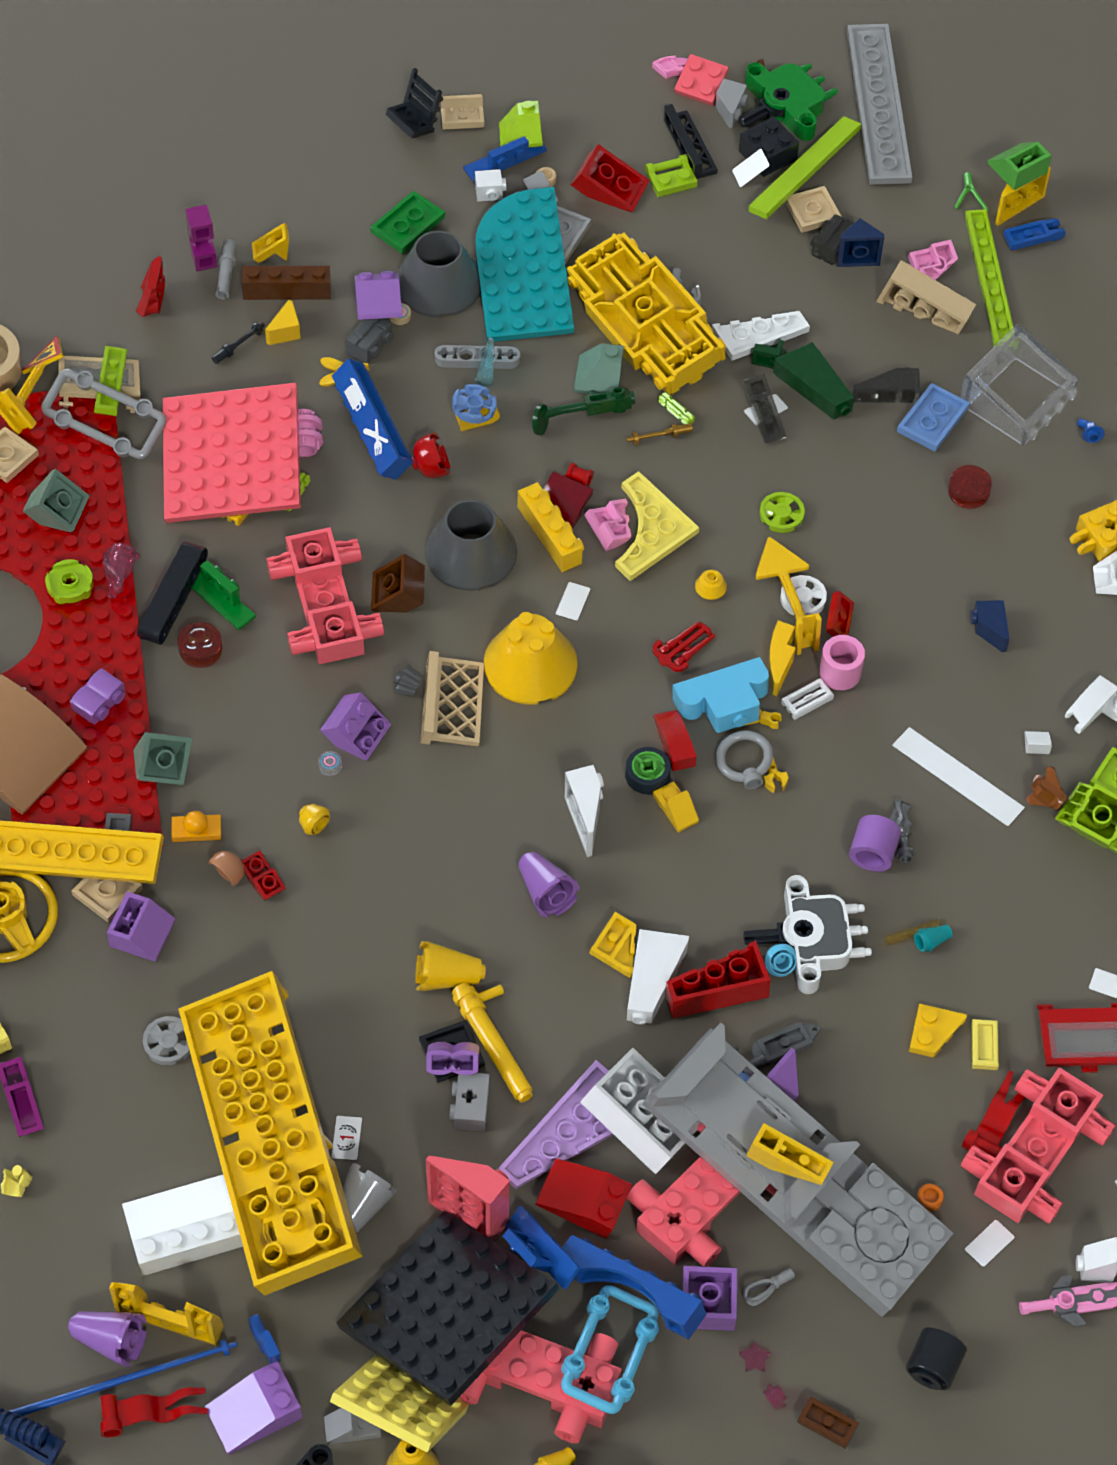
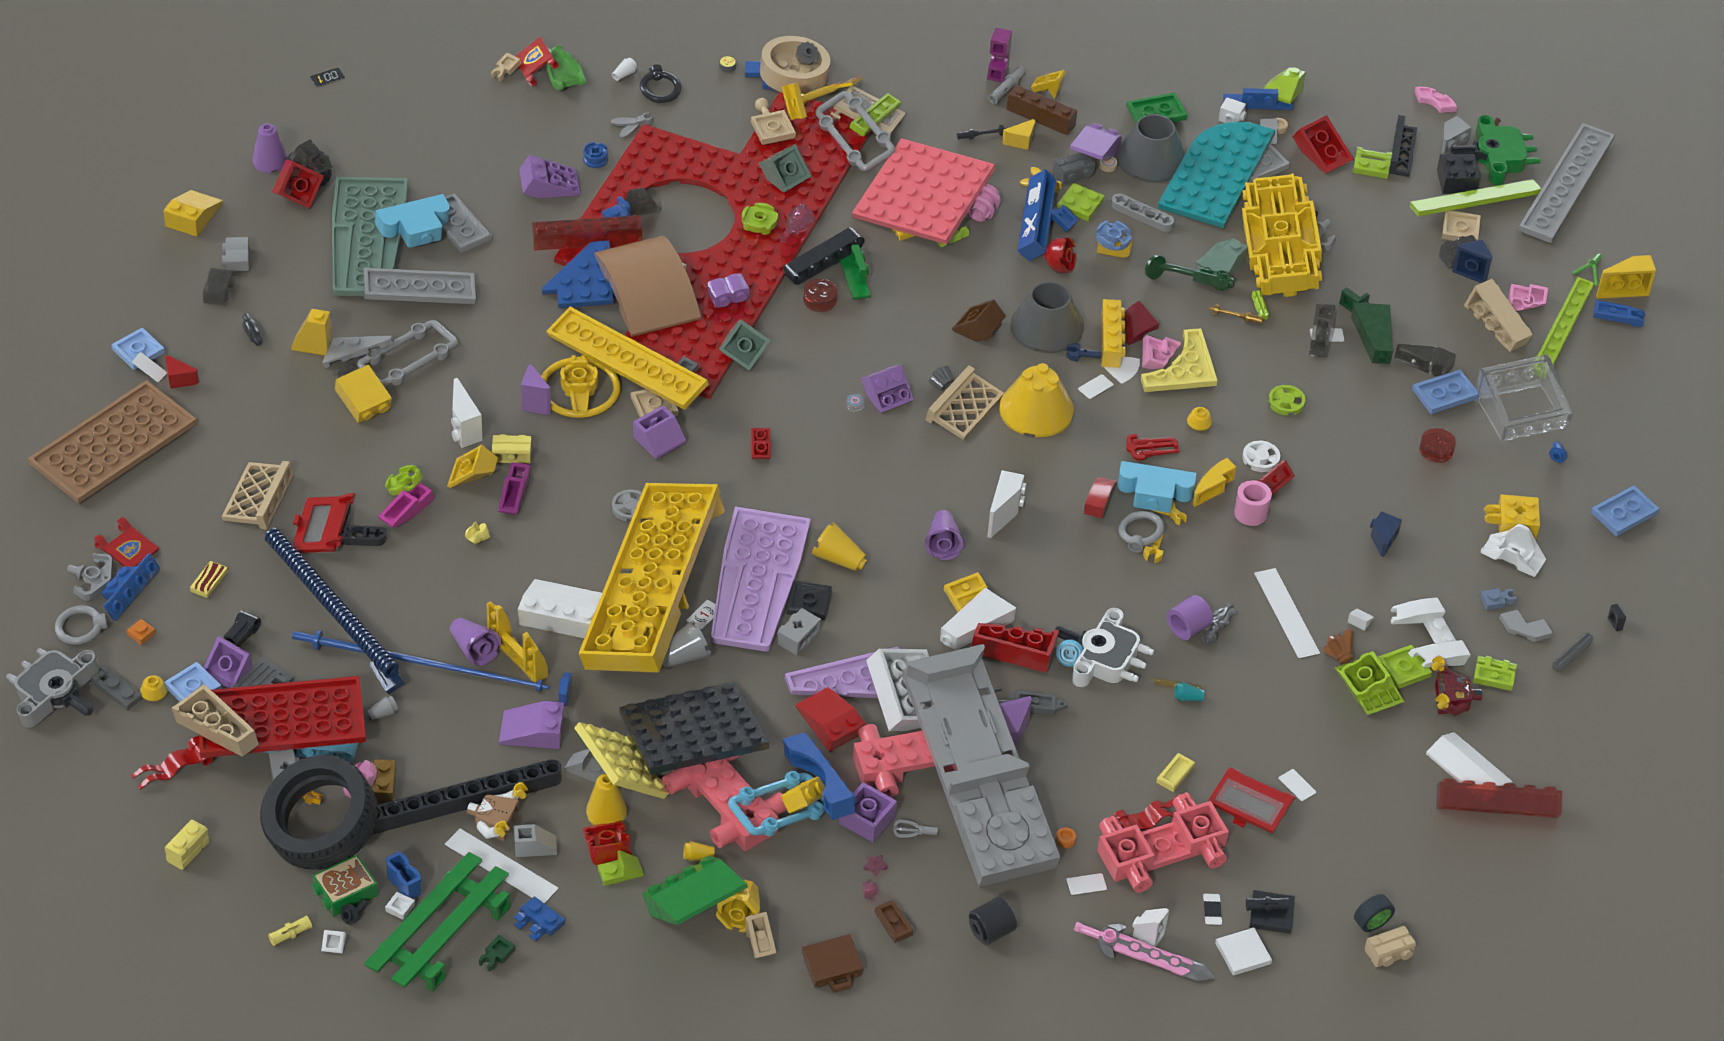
camera: 30 degrees right, 10 degrees down
(144, 1408) = (467, 691): red flag -> none
(153, 289) = (946, 73): red slope -> none
(196, 827) = (739, 397): light orange tile -> none
(228, 866) = (742, 425): nougat hair -> none
(313, 818) = (818, 427): yellow cone -> none
(331, 618) = (918, 318): coral piece -> none
(375, 1055) = (757, 576): none -> lavender wing
(401, 407) = (1063, 217): none -> blue bracket
(402, 376) = (1081, 201): none -> lime plate
(412, 115) = (1213, 48): black plate -> none
(447, 1058) = (802, 597): medium lavender brick -> none
(462, 111) = (1248, 59): tan bracket -> none
(469, 1193) = (752, 670): coral slope -> none
(474, 1011) = (840, 583): yellow cylinder -> none
(486, 368) = (1140, 220): clear light blue slope -> none
(529, 567) = (1075, 352): none -> dark blue bar
(539, 1248) = (776, 727): blue bracket -> none
(580, 475) = (1158, 313): red bush -> none
(591, 563) = (1128, 368): none -> white sticker
(628, 1320) = (803, 794): none -> yellow brick
(649, 780) = (1067, 505): wheel -> none
(676, 806) = (1070, 536): yellow slope -> none
(701, 79) = (1440, 110): coral plate -> none
(742, 336) = (1360, 284): white wing -> none
(750, 167) = (1433, 180): white sticker -> none
(781, 562) = (1257, 426): yellow piece -> none
(788, 1156) = (971, 743): yellow slope -> none
(815, 702) = (1219, 517): white tile -> none
(934, 1029) = (1146, 745): yellow wing -> none
(1021, 164) = (1631, 256): bright green slope -> none

